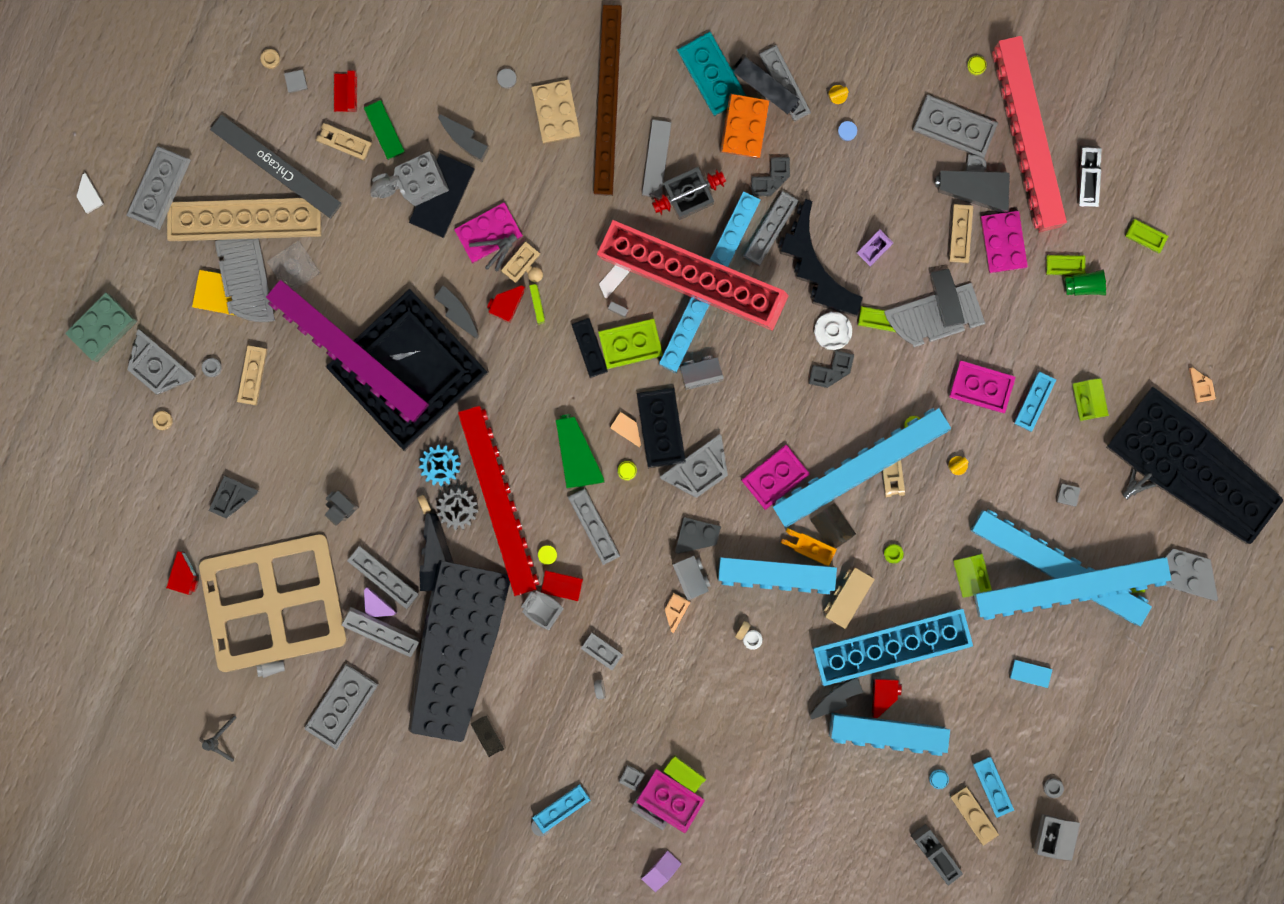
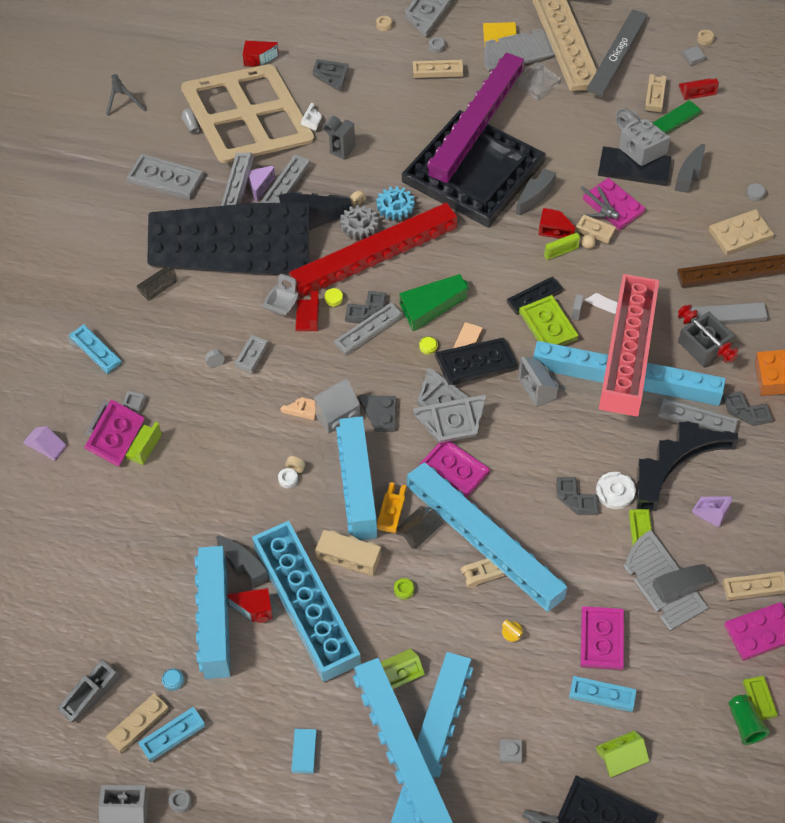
camera: 75 degrees right, 30 degrees down
(293, 531) = (311, 118): none -> white tile
(573, 529) = (359, 313): none -> dark grey tile
(729, 468) = (452, 419): none -> light grey wing

